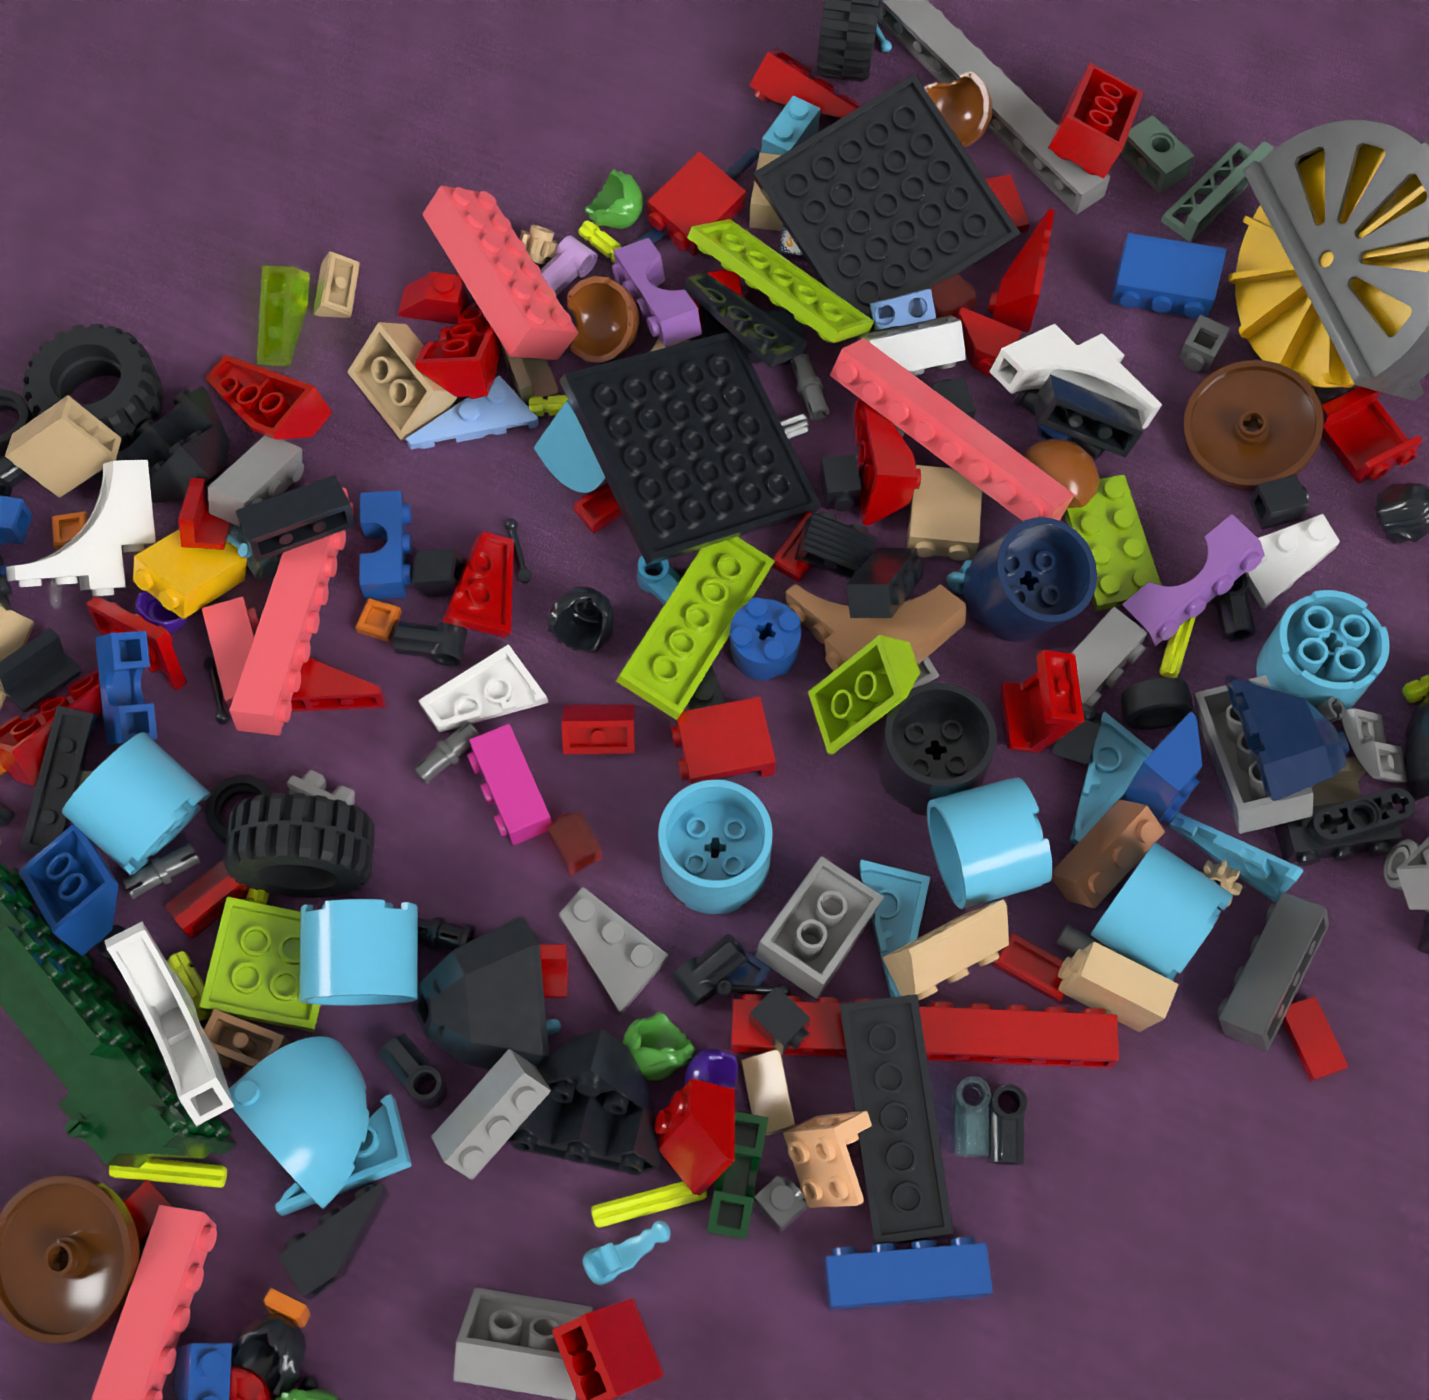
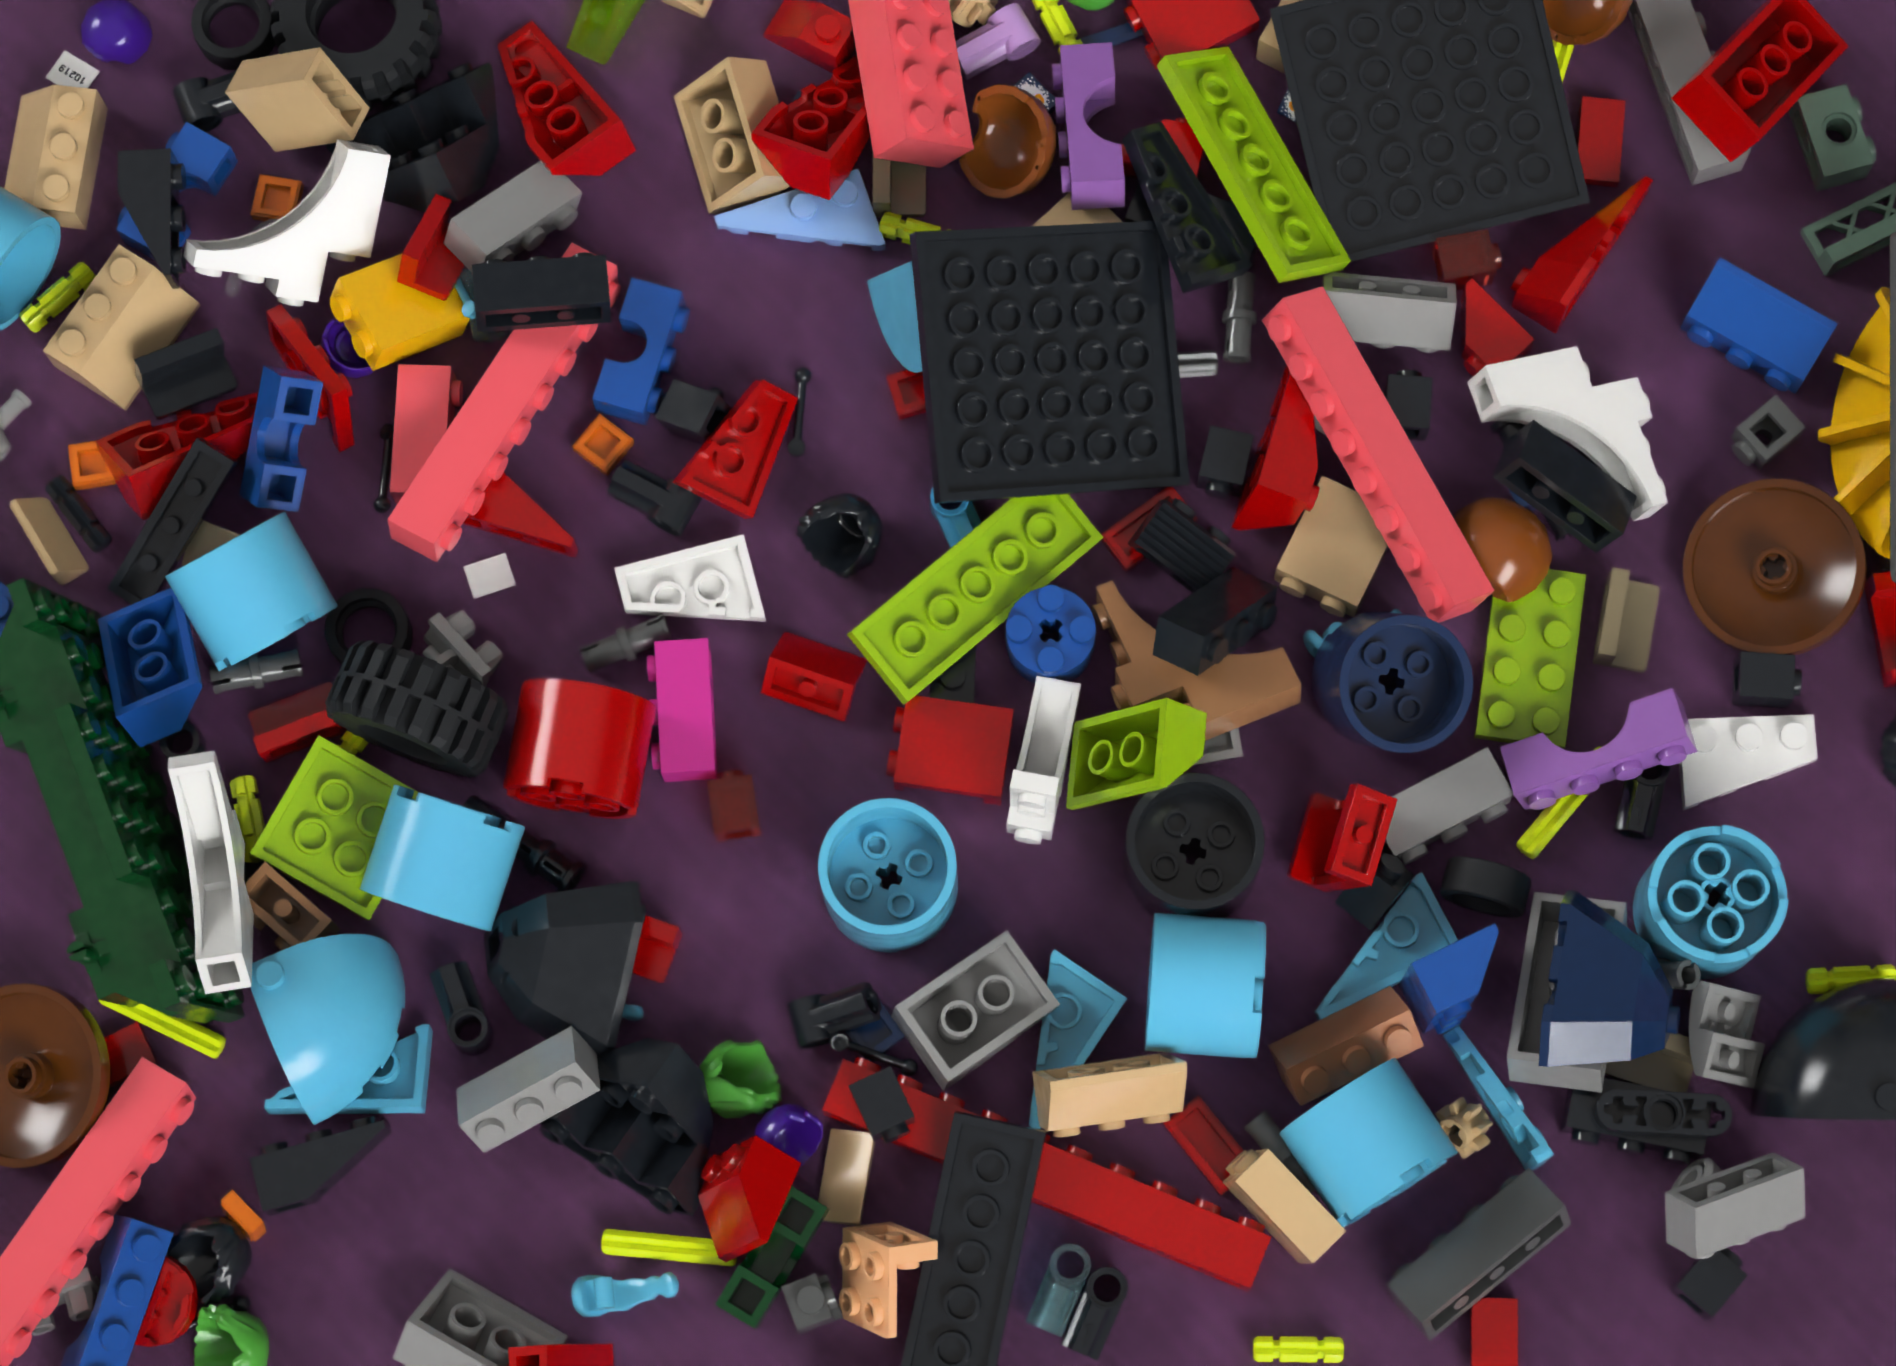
camera: 25 degrees right, 10 degrees up
(323, 741) = (489, 575): none -> white sticker
(439, 833) = (579, 748): none -> red brick
(614, 948) = (733, 946): light grey wing -> none
(798, 726) = (1042, 760): none -> white arch
(903, 310) = (1393, 257): medium blue leg -> none
(1164, 497) = (1626, 622): none -> dark tan panel
(1170, 1097) = (1298, 1349): none -> neon yellow axle

